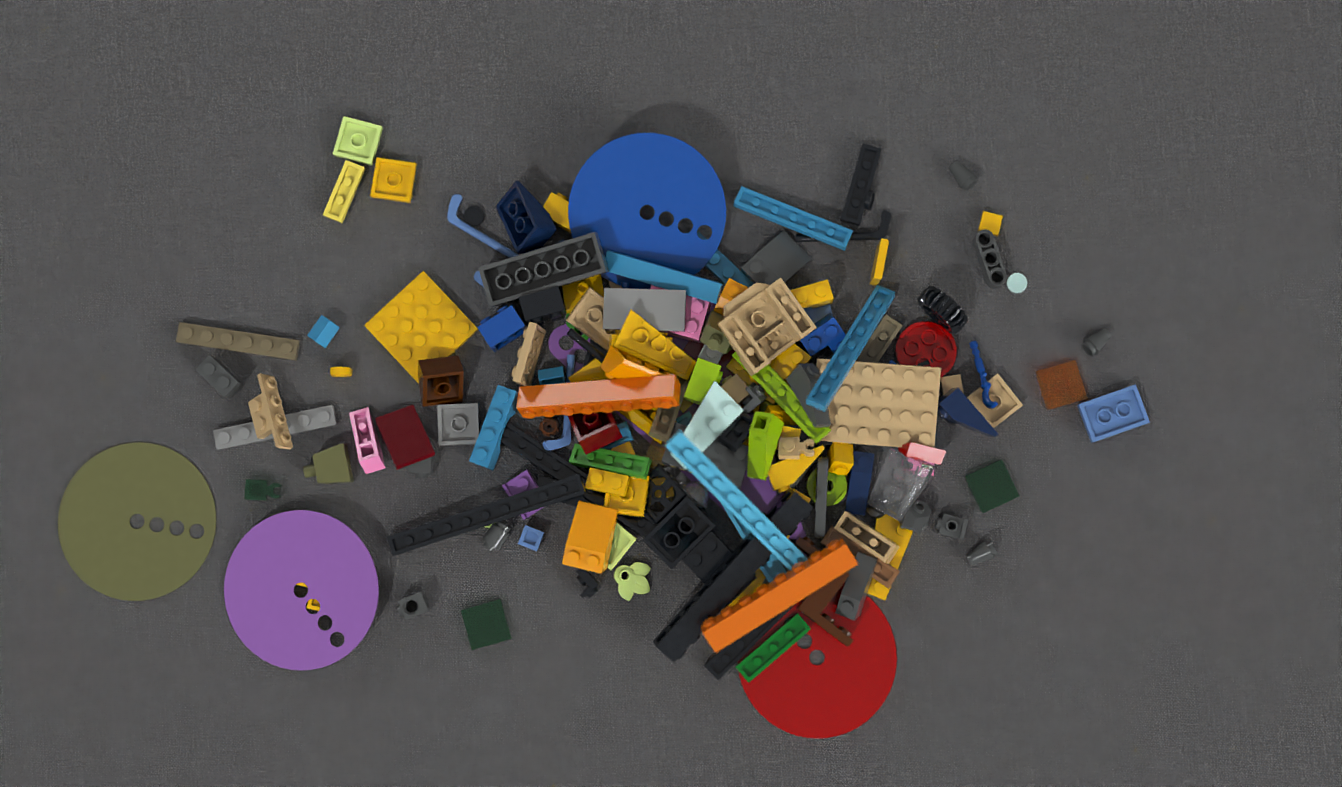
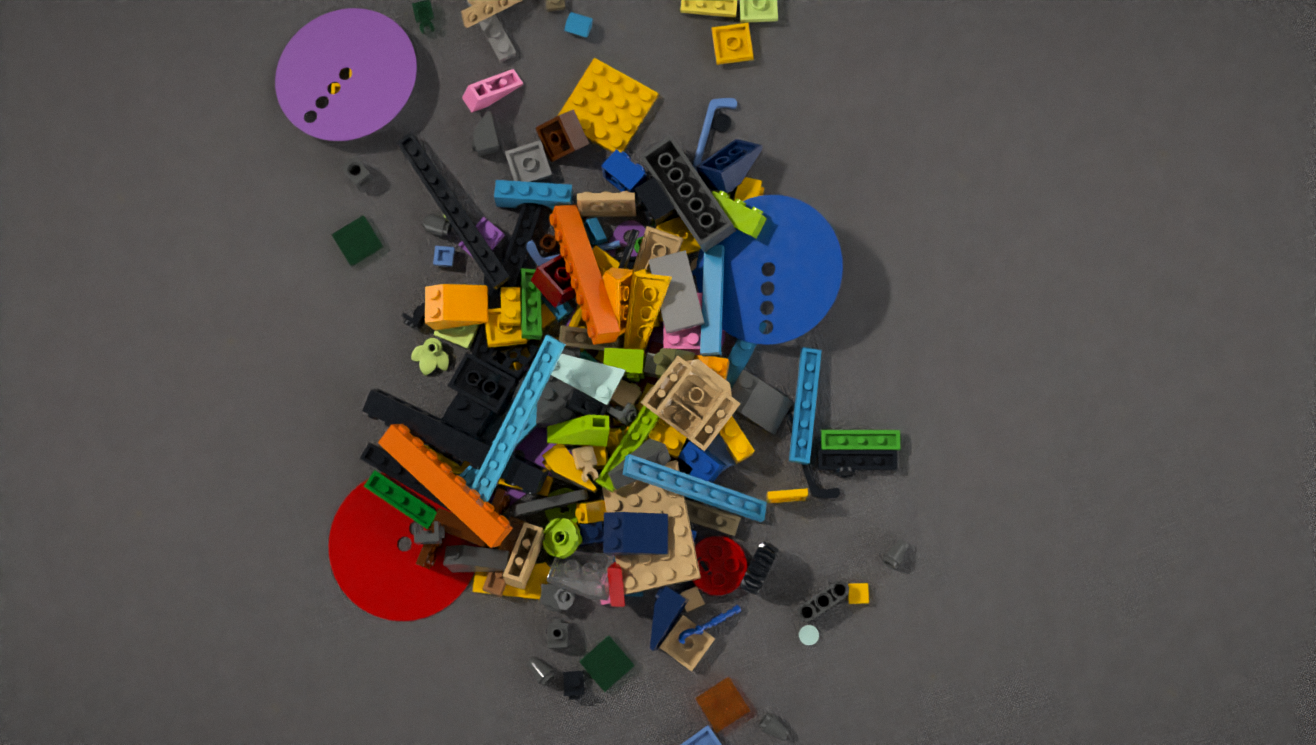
camera: 80 degrees right, 5 degrees down
(331, 466) = (461, 67): olive torso -> none
(340, 371) = (547, 50): yellow tile -> none
(405, 437) = (502, 119): dark red tile -> none
(589, 220) = (744, 219): none -> lime slope
(827, 626) = (428, 537): none -> dark grey bracket
(841, 175) = (860, 440): none -> bright green plate
(854, 504) = (571, 540): none -> lime plate
(881, 417) = (635, 533): none -> dark blue slope
(1004, 524) = (574, 684): none -> black bracket

